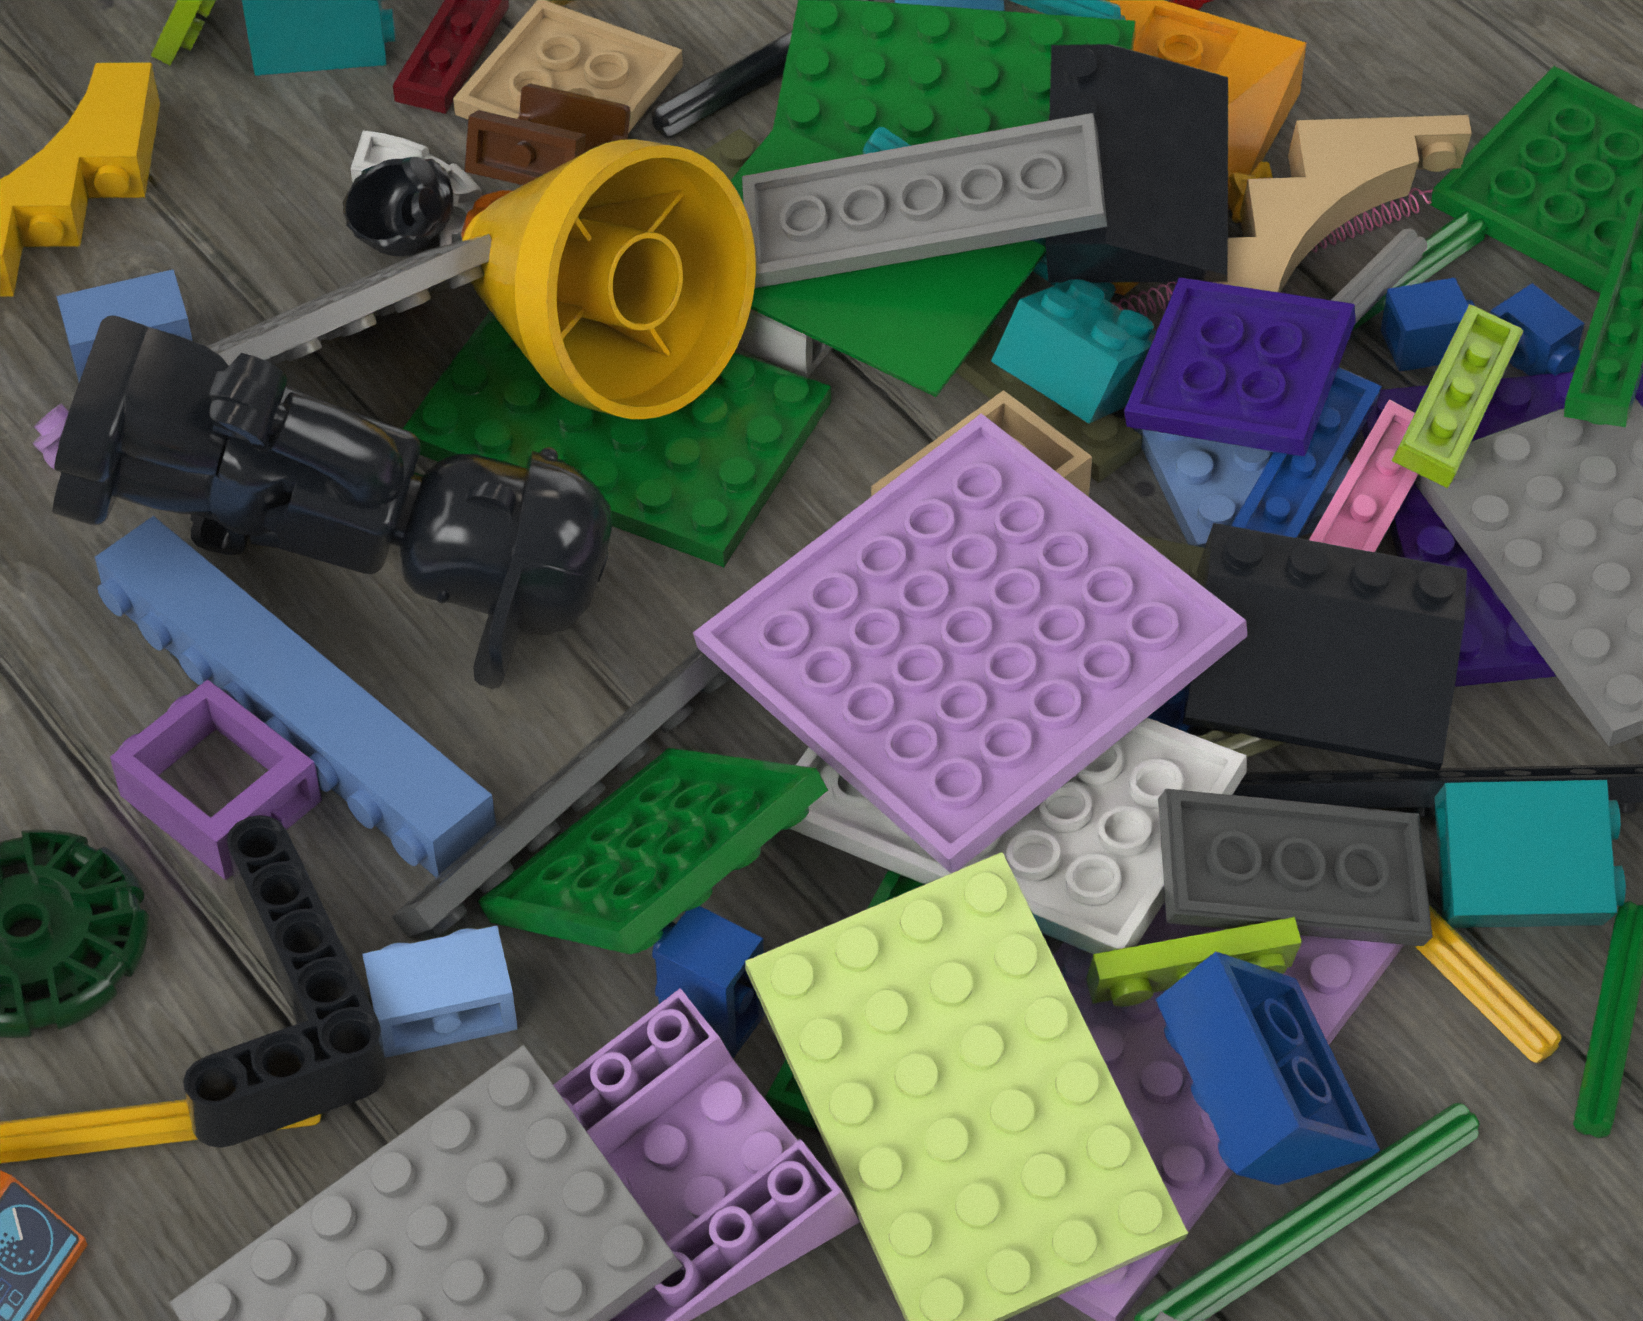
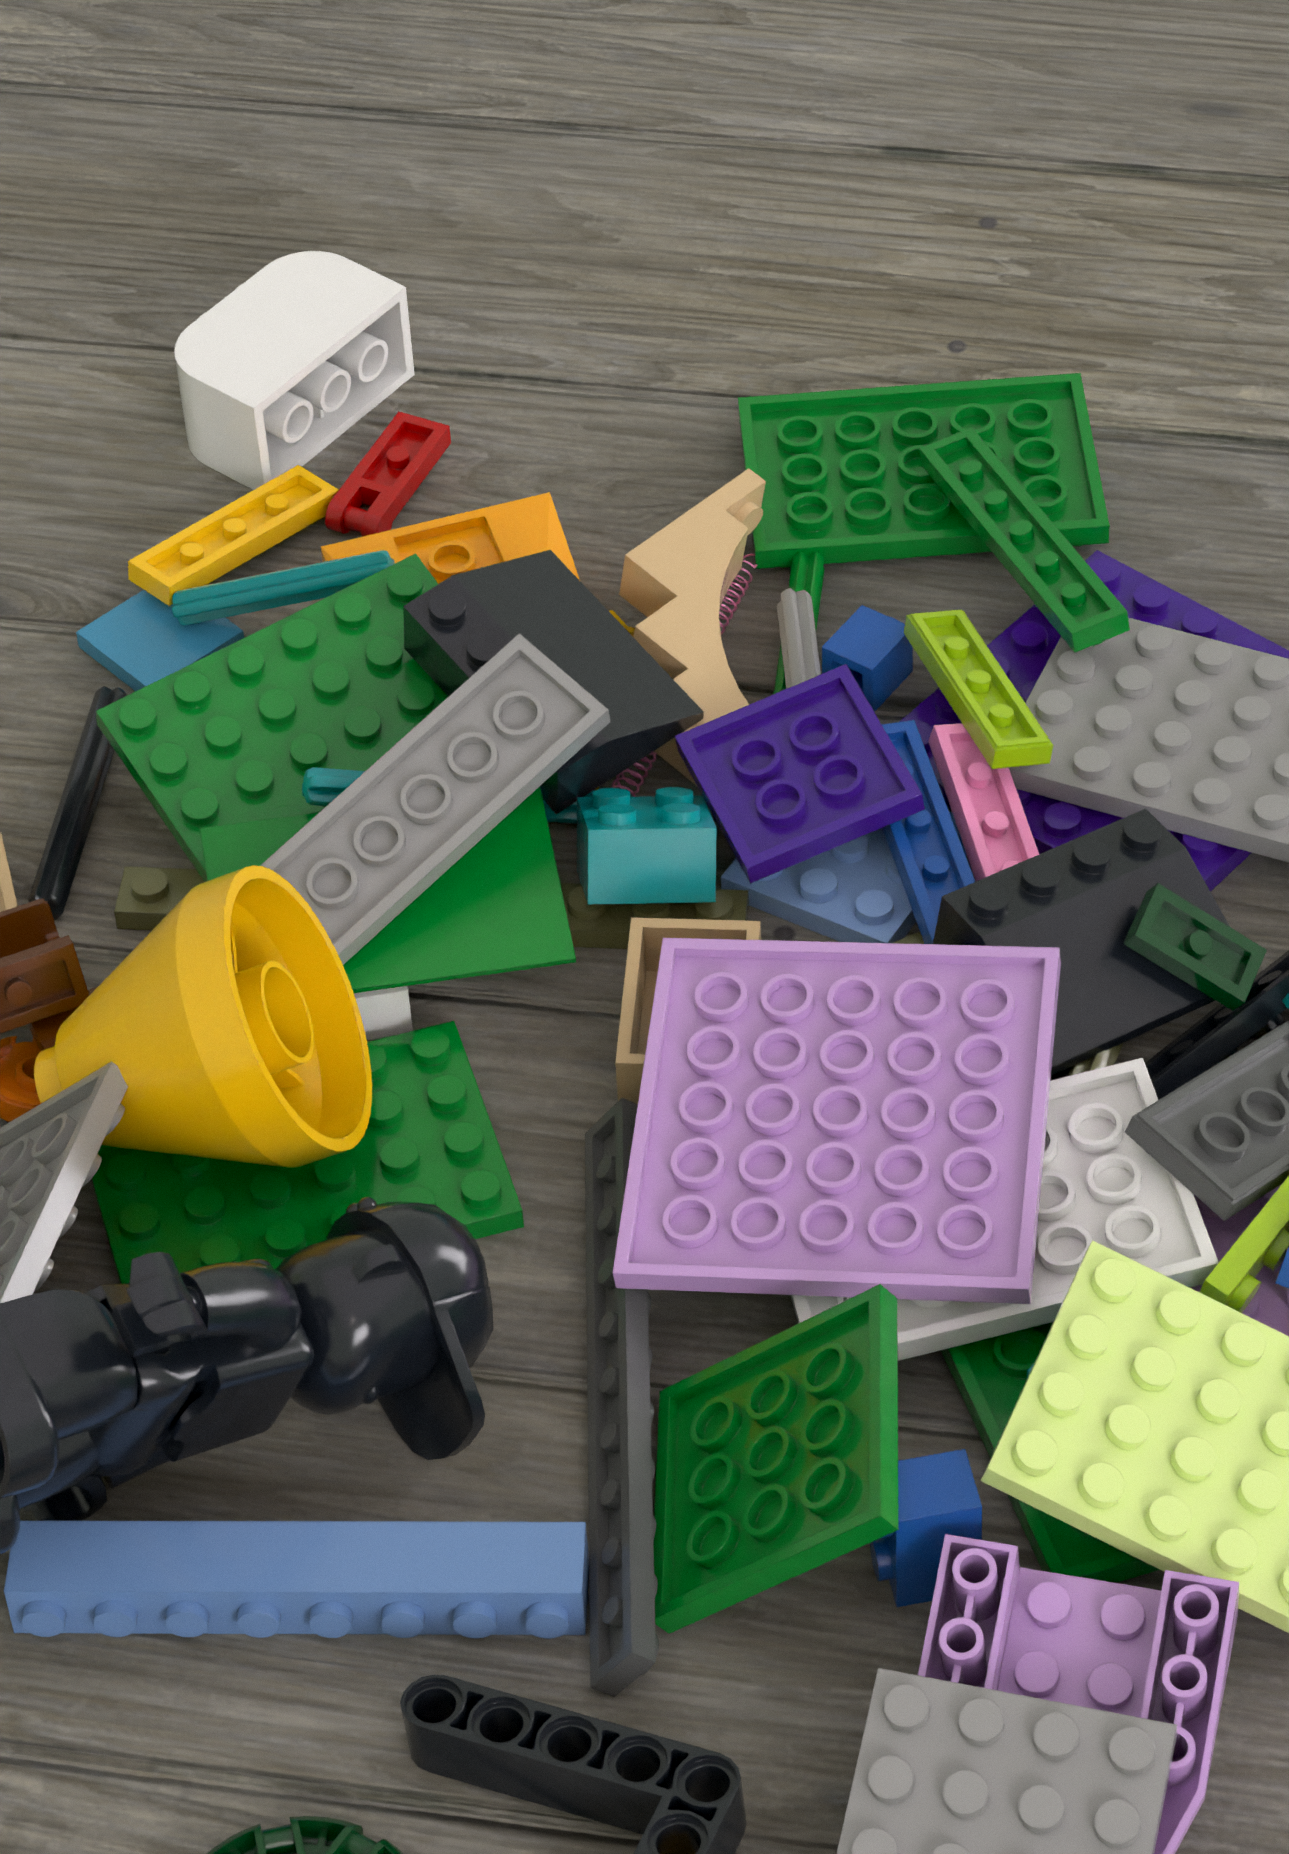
camera: 40 degrees left, 5 degrees down
(283, 792) = (323, 1743): medium lavender window -> none
(440, 990) = (716, 1691): light blue brick -> none
(1390, 702) = (1195, 946): none -> dark green plate
(1549, 333) = (965, 592): blue brick -> none

